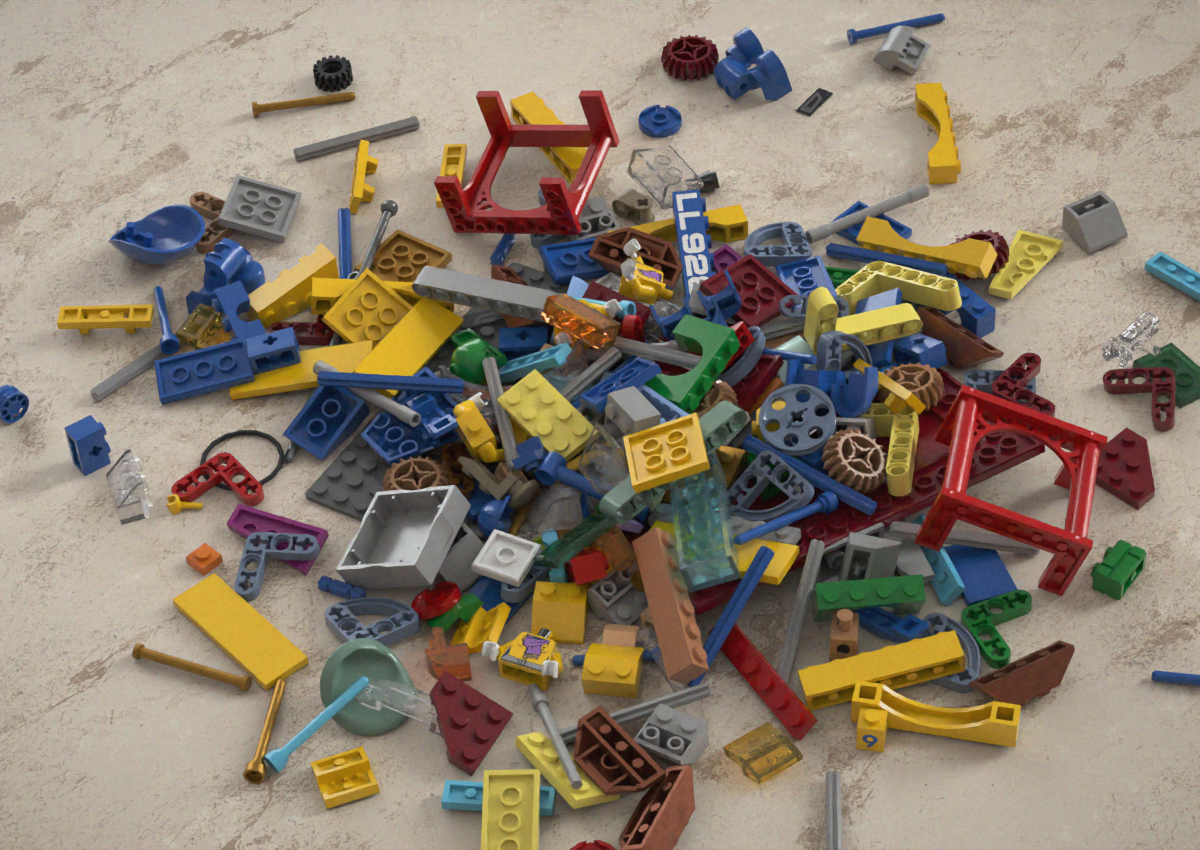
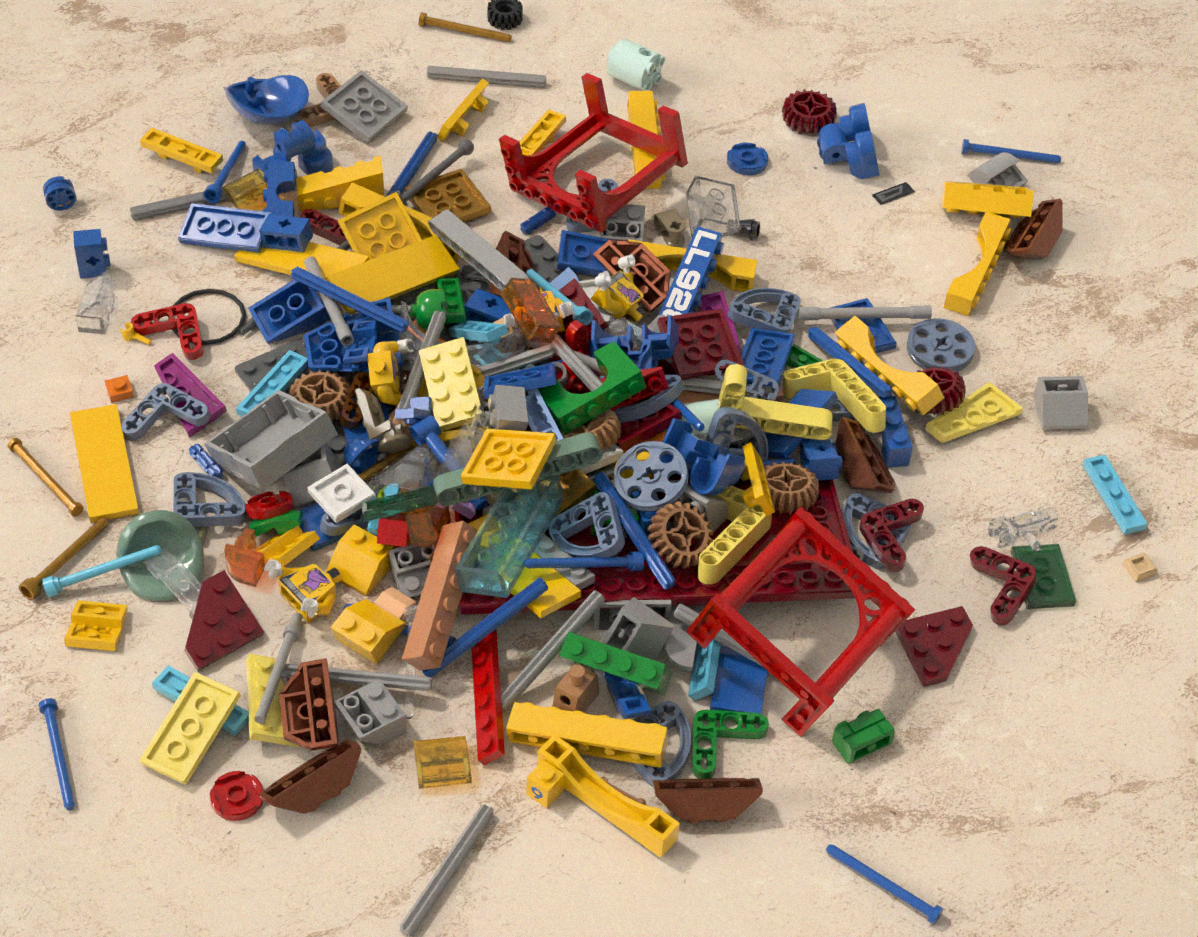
camera: 20 degrees right, 5 degrees up
(361, 490) = (278, 378): none -> medium azure plate
(499, 73) = (635, 64): none -> light aqua cylinder
(907, 72) = (987, 198): none -> yellow wedge
(943, 213) = (936, 338): none -> sand blue wedge
(970, 84) = (1037, 234): none -> copper wedge

